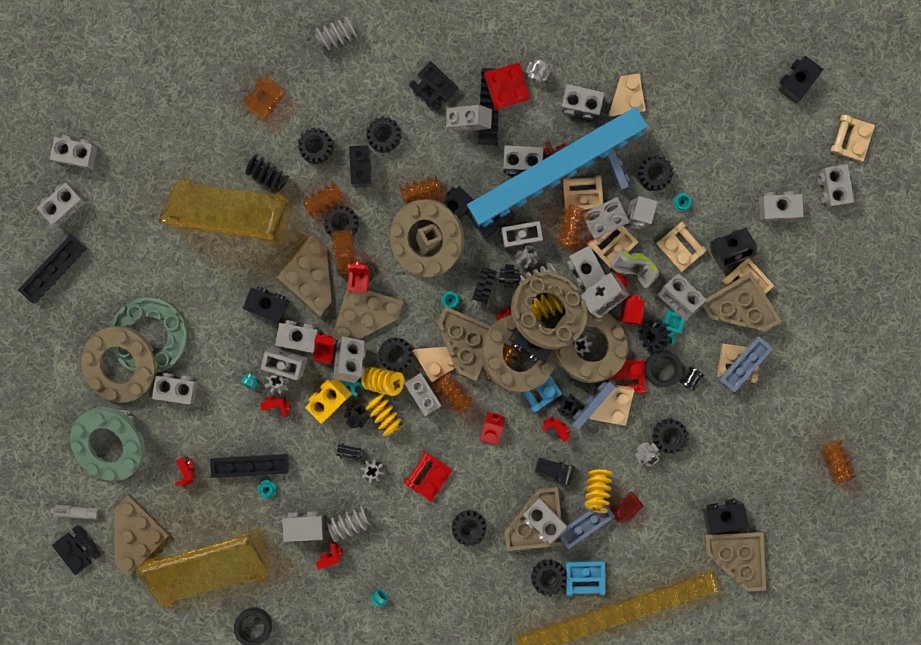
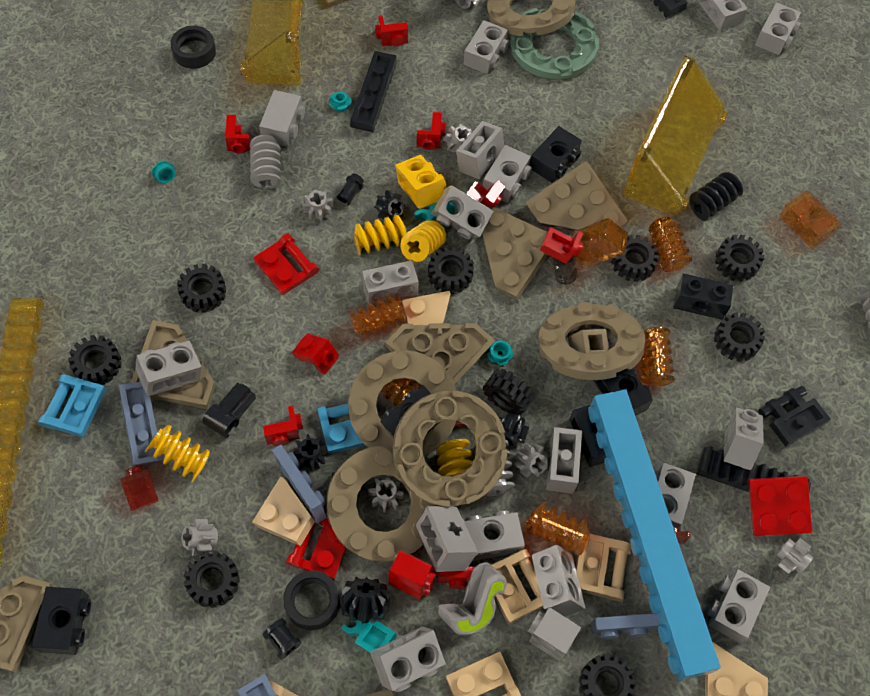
camera: 105 degrees right, 25 degrees down
(249, 381) = (470, 116): teal plate -> none

